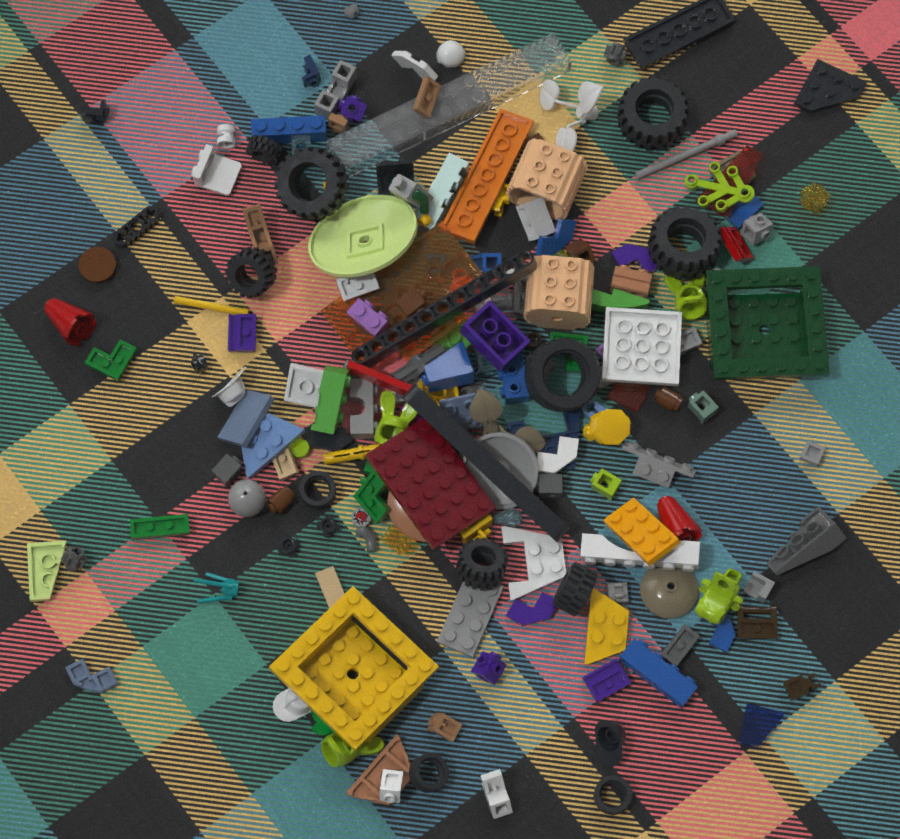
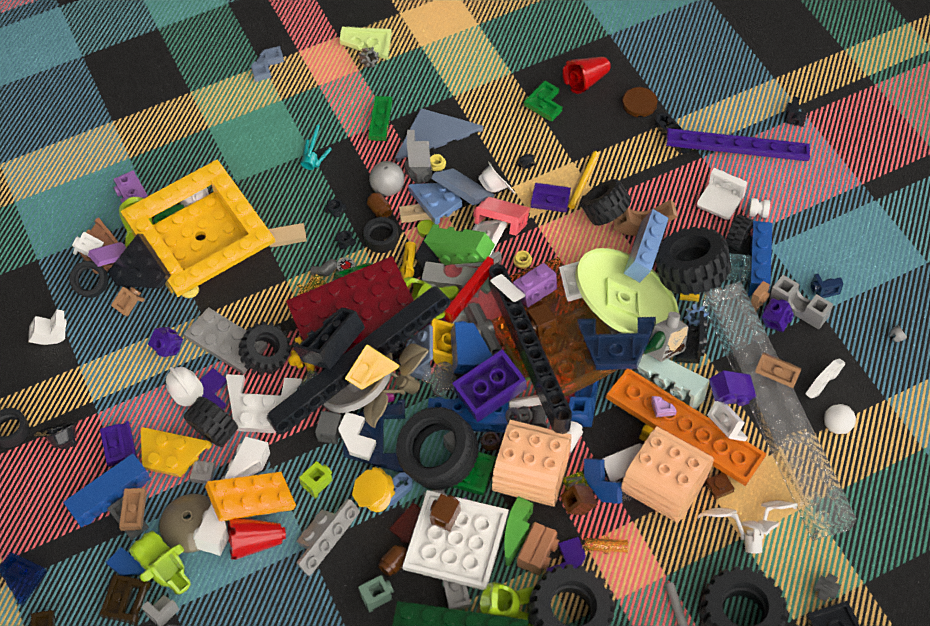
camera: 105 degrees right, 15 degrees down
(146, 164) = (738, 144): none -> dark purple tile
(168, 469) = (438, 130): none -> sand blue tile
(208, 451) = (437, 162): none -> light yellow plate
(220, 467) = (417, 151): none -> light grey panel
(277, 370) = (503, 211): none -> coral panel
(303, 225) = (646, 245): none -> medium blue brick
(305, 768) = (129, 186): none -> medium lavender brick
(323, 342) = (522, 255): none -> light yellow plate
(365, 179) = (691, 315): none -> medium blue gear
(382, 340) = (507, 288): none -> white sticker
(399, 755) = (106, 254): none -> medium lavender tile
(411, 715) = (139, 266): none -> black plate
(437, 229) = (616, 350): none -> dark blue wing
(450, 135) = (732, 388): none -> dark purple brick
(477, 193) = (662, 407): none -> lavender tile
(477, 487) = (331, 340): none -> black wedge
(479, 139) = (727, 421): none -> white panel
(500, 444) = (370, 367): none -> yellow wing
(513, 315) = (517, 412): none -> dark grey bush
(532, 637) = (183, 386): none -> white piece
(614, 228) = (606, 545): none -> clear yellow pin
(624, 354) = (445, 511): none -> reddish brown brick
(676, 636) = (133, 509): none -> medium nougat plate

